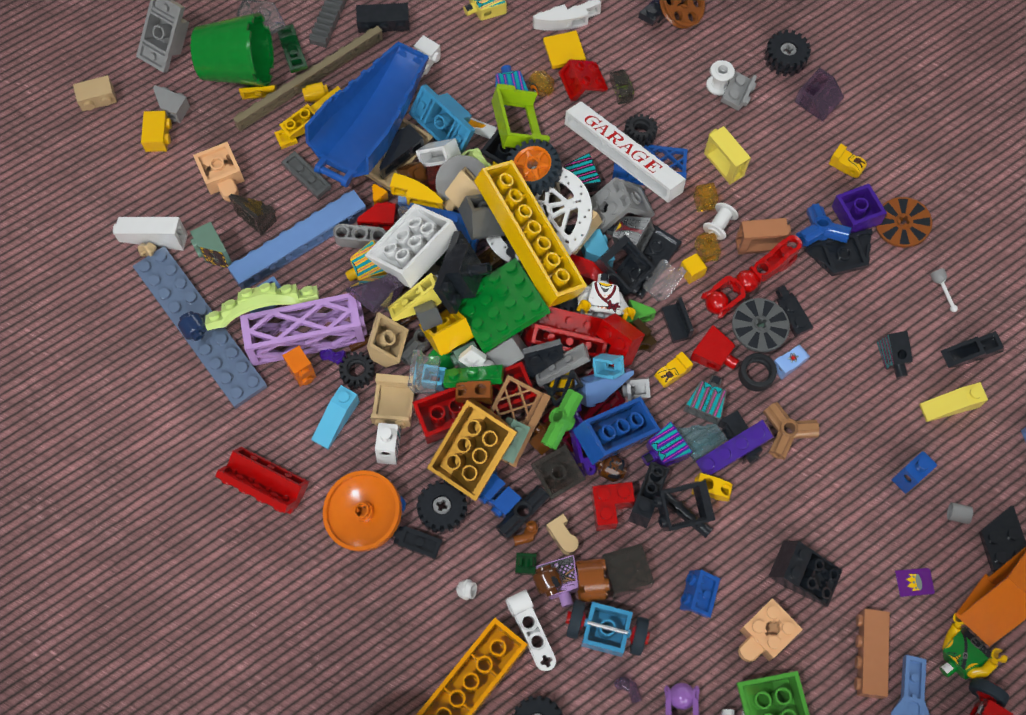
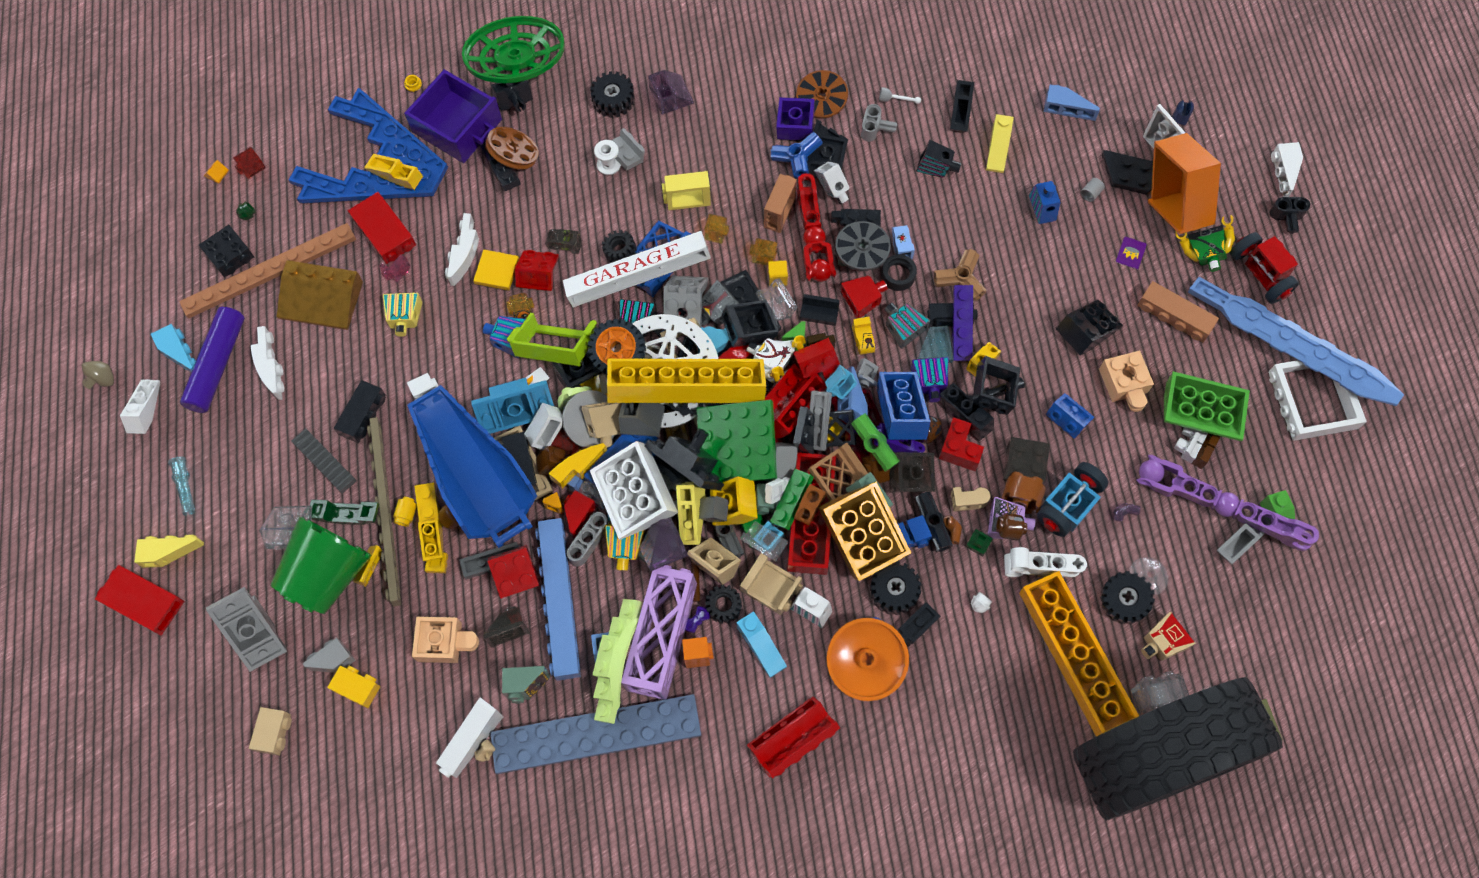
camera: 60 degrees left, 0 degrees up
(192, 326) = (601, 736): dark blue head -> none
(301, 193) = (513, 571): none -> red brick
(720, 221) = (745, 228): white hose -> none
(816, 263) = (833, 181): none -> white torso
(847, 162) = (744, 105): yellow leg -> none
(901, 280) = (875, 123): none -> light grey beam

